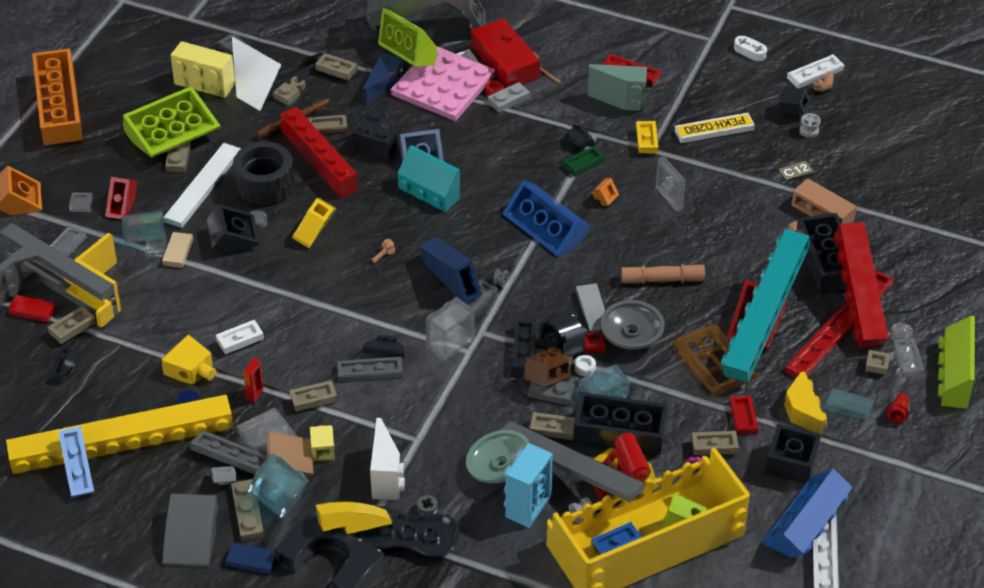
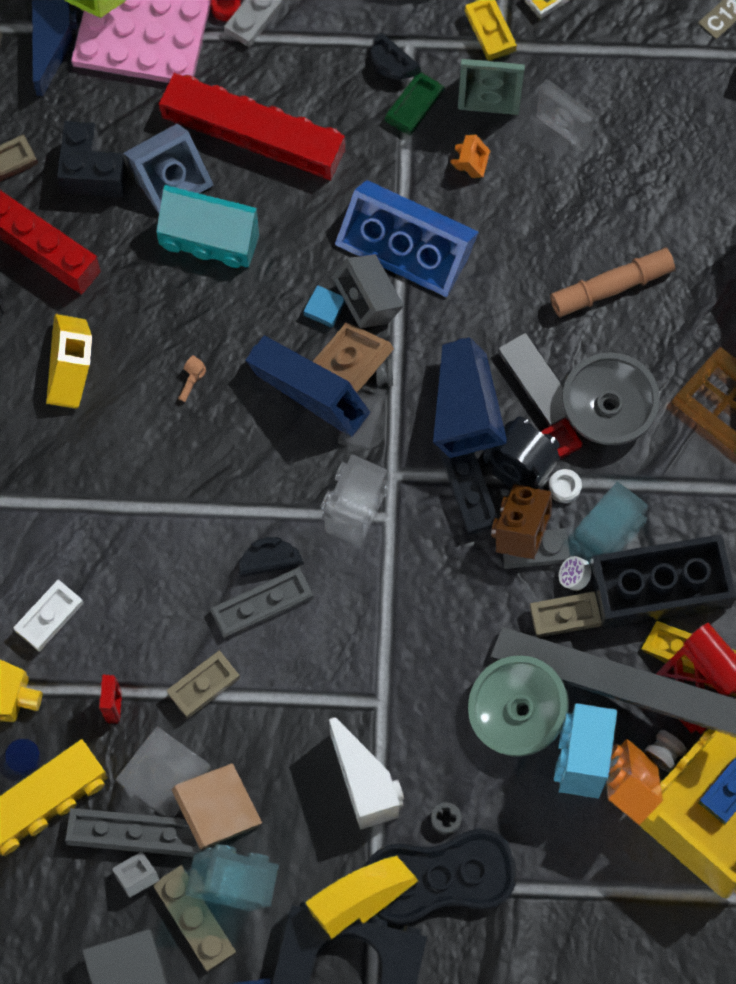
camera: 20 degrees left, 25 degrees up
(322, 443) = (253, 765): light yellow brick -> none
(481, 144) = (252, 125): none -> red brick
(481, 240) = (324, 306): none -> dark azure tile
(488, 262) = (354, 355): none -> medium nougat tile
(509, 235) = (367, 291): none -> dark grey brick
(540, 299) = (467, 402): none -> dark blue slope
(546, 502) = (633, 782): none -> orange brick
(568, 407) = (575, 573): none -> white tile
(631, 155) = (490, 86): none -> sand green slope

